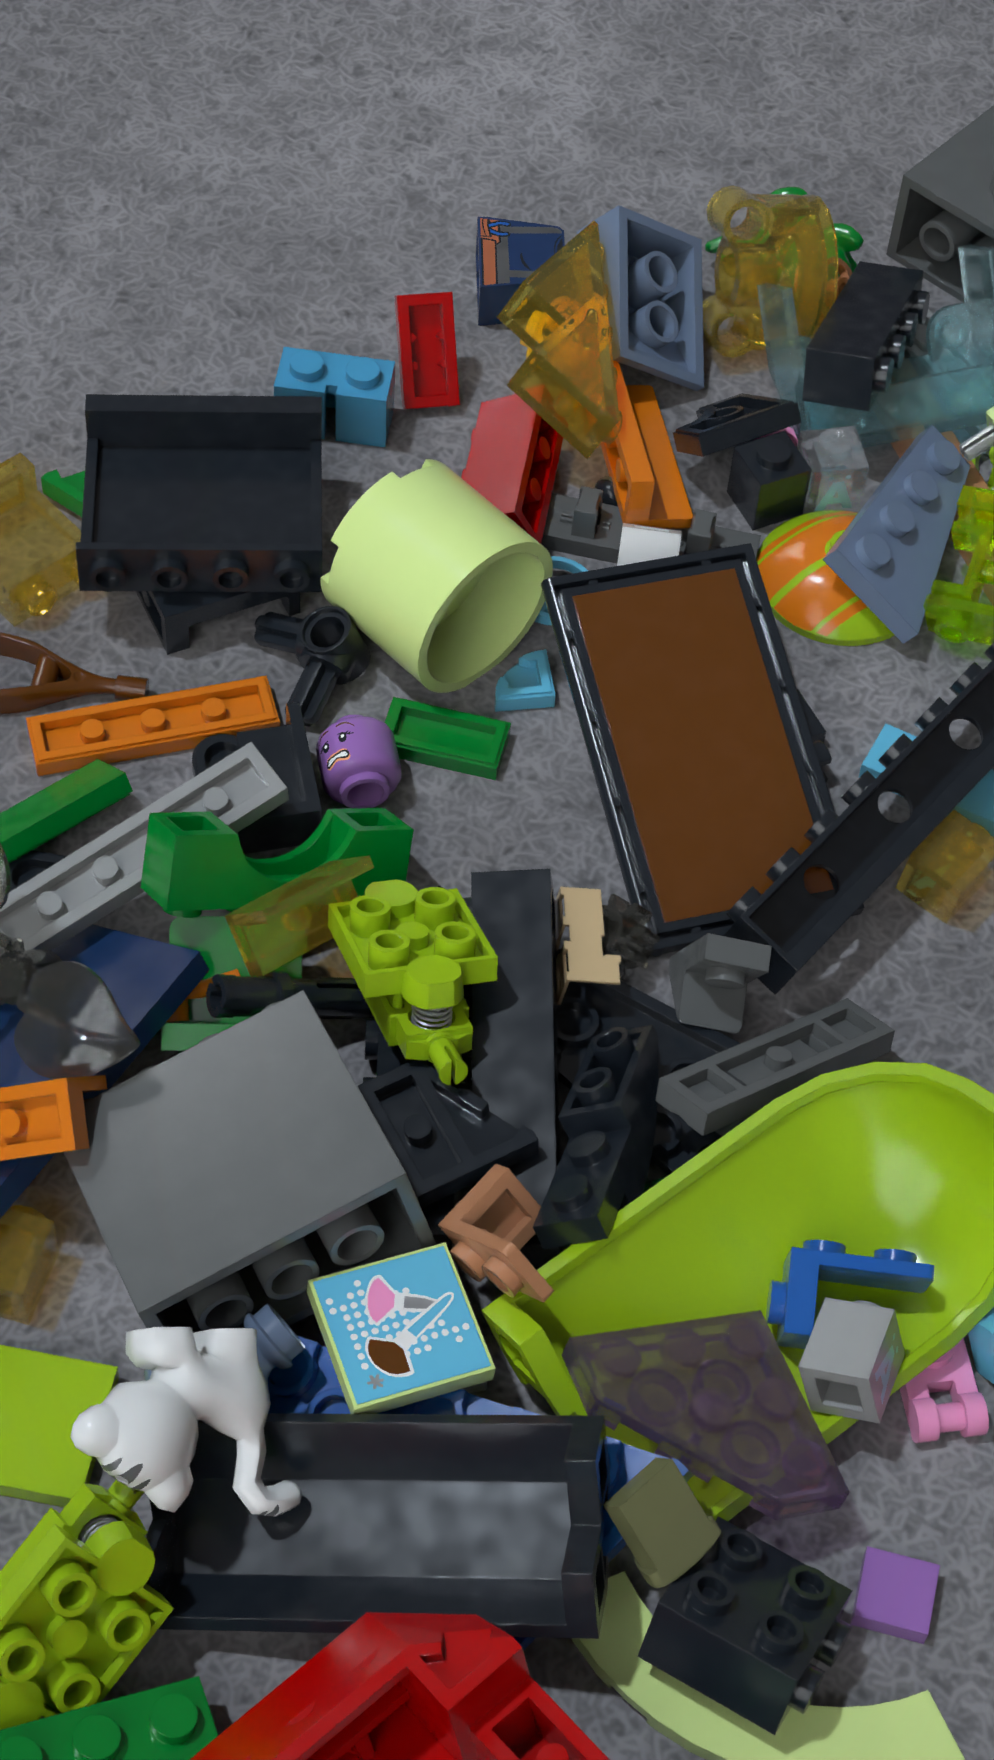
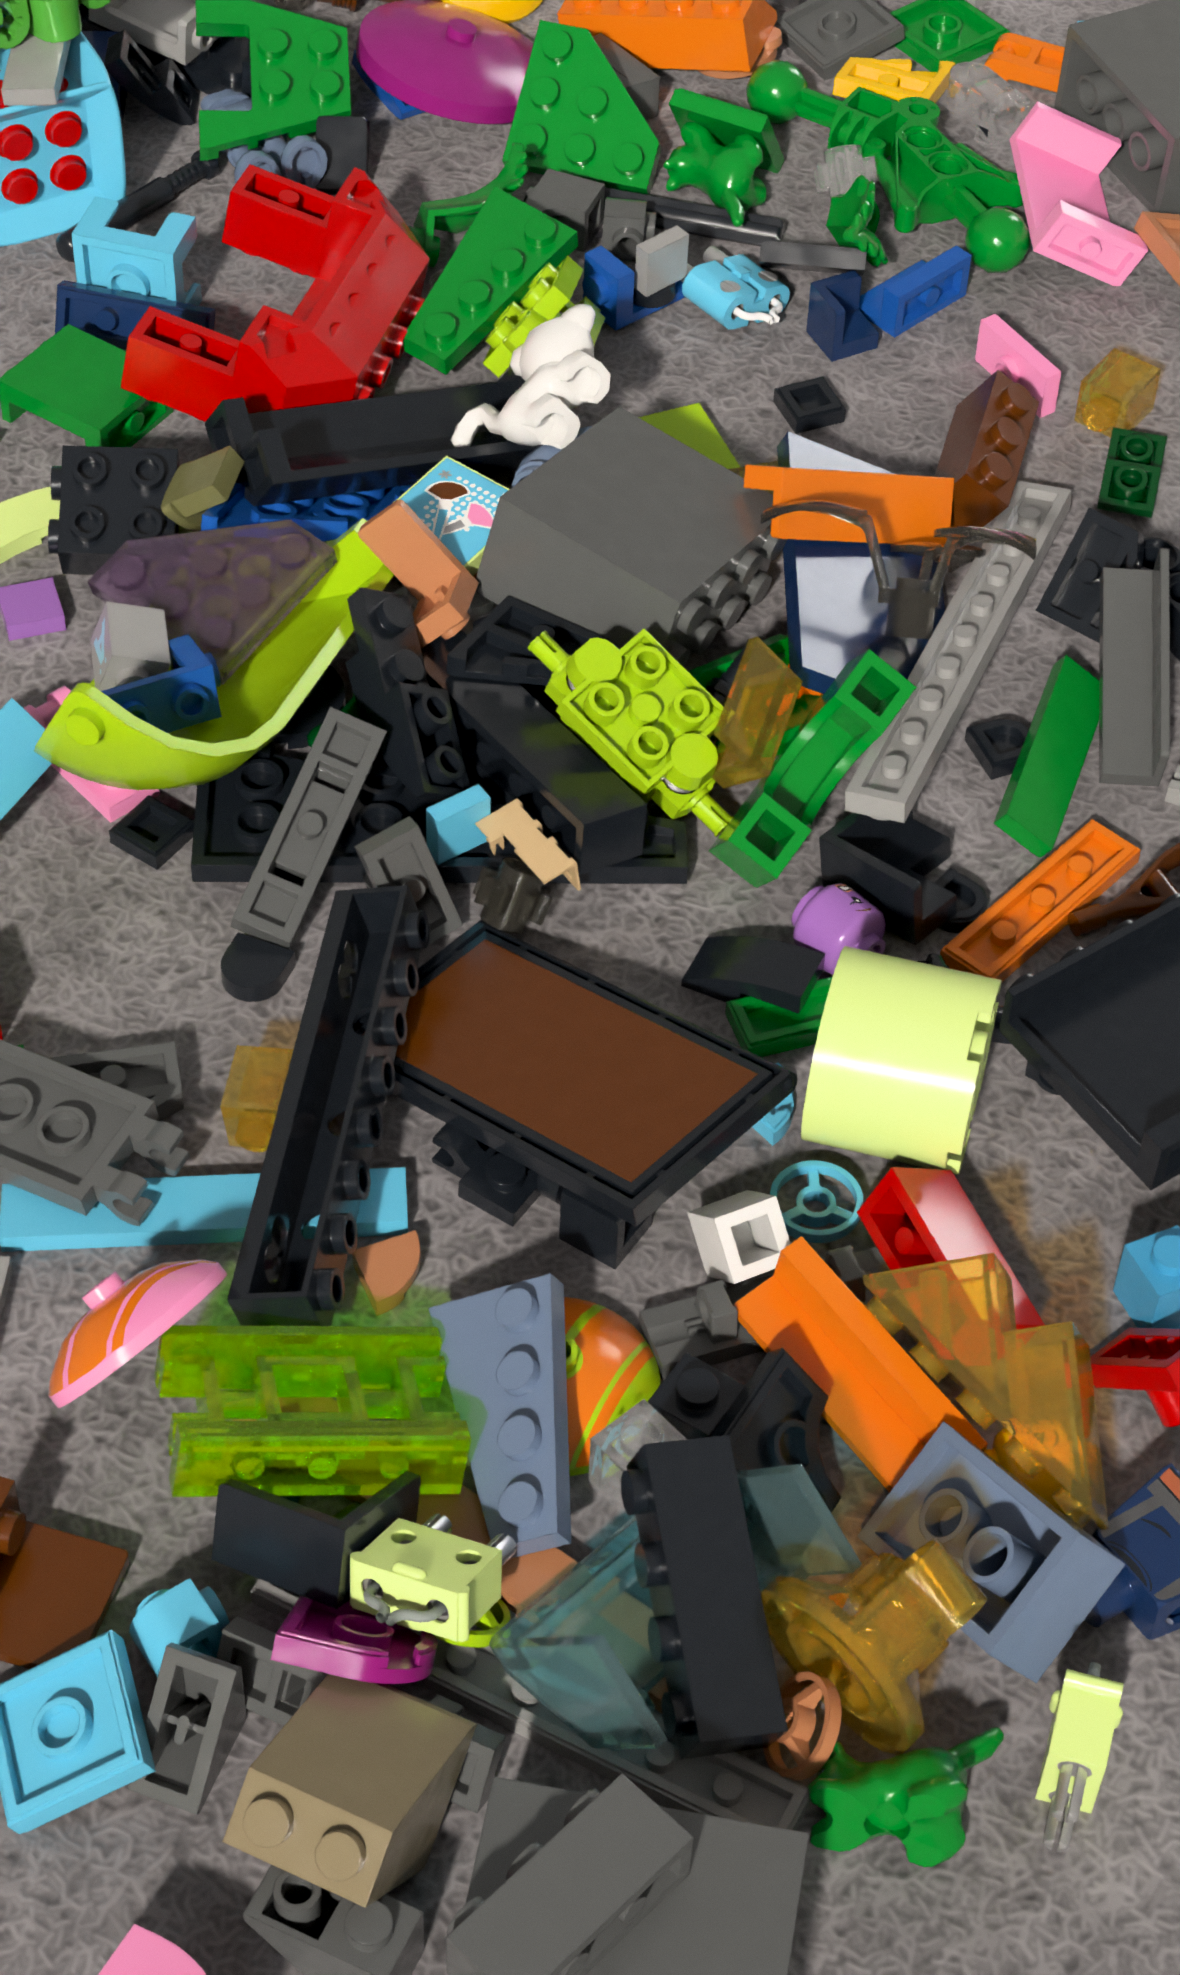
camera: 150 degrees right, 5 degrees down
(456, 778) = (755, 967): none -> black slope
(634, 996) = (452, 823): none -> medium azure tile
(680, 188) = (1077, 1748): none -> yellowish green piece
(893, 1006) = (255, 968): none -> black tile
(912, 700) = (388, 1269): none -> nougat tile

